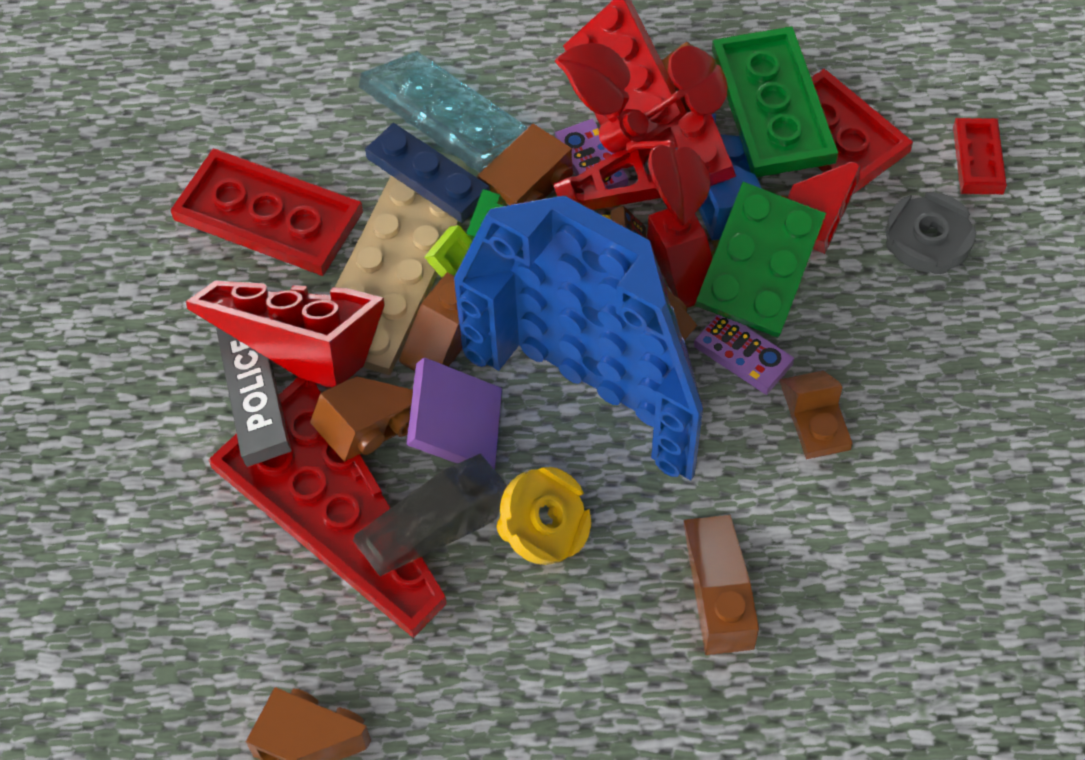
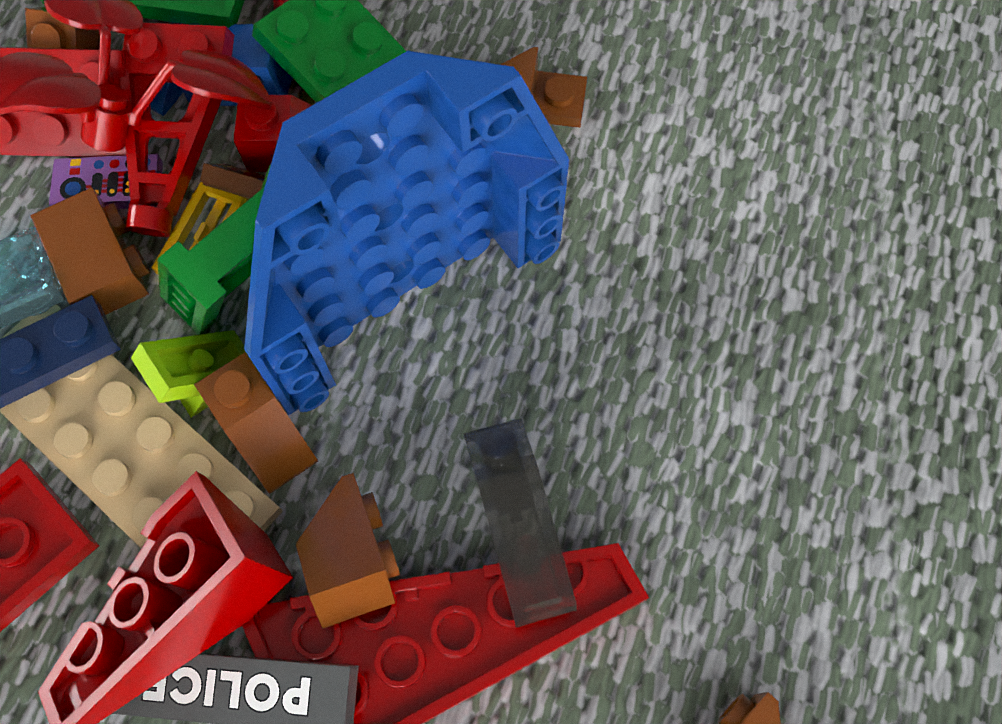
camera: 70 degrees left, 10 degrees up
(453, 414) = (387, 450): medium lavender tile -> none
(520, 518) = (536, 397): yellow plate -> none
(721, 586) = (703, 253): dark orange slope -> none

